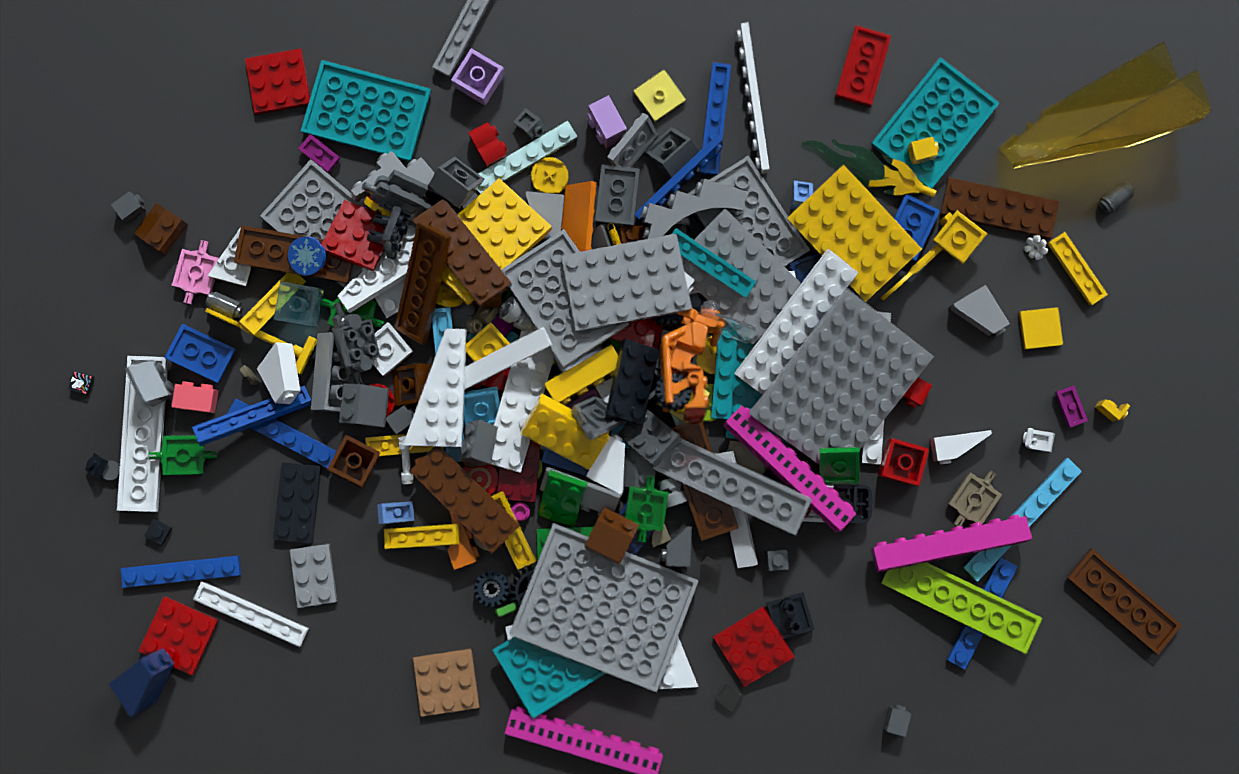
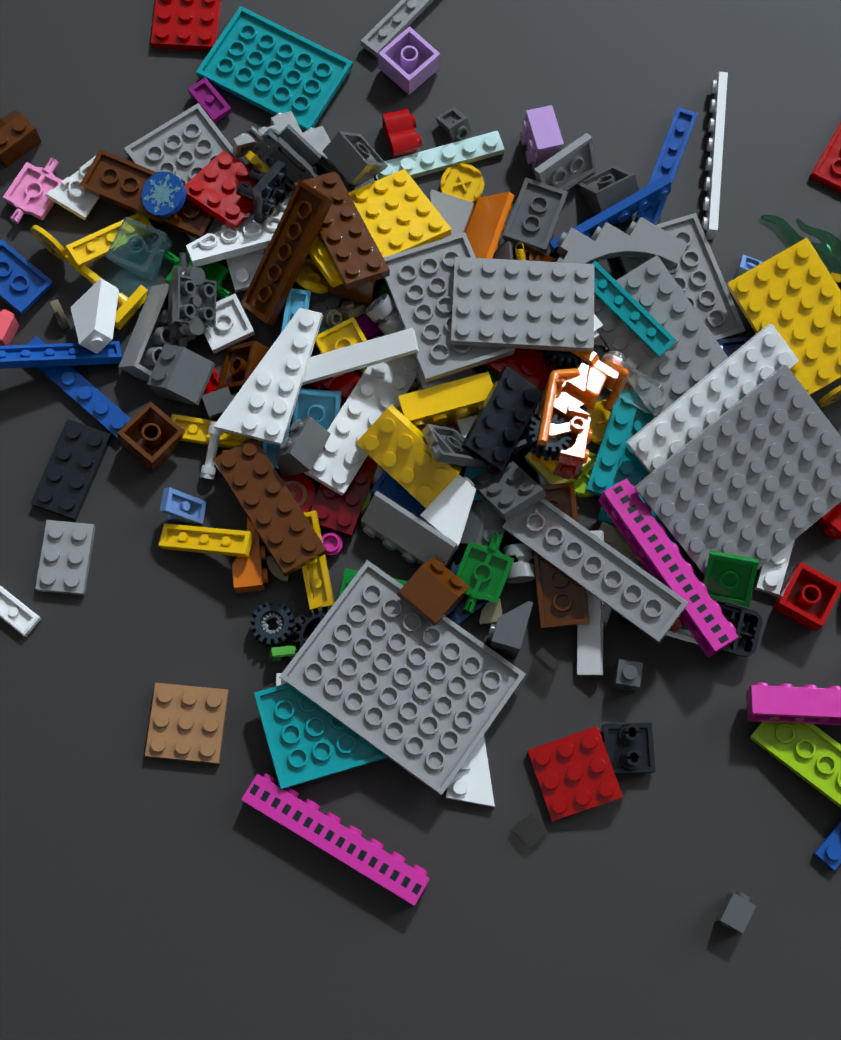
camera: 20 degrees right, 10 degrees down
(224, 305) = (56, 229): dark grey head -> none
(562, 498) = (385, 535): green plate -> none
(659, 95) = (608, 129): light yellow plate -> none

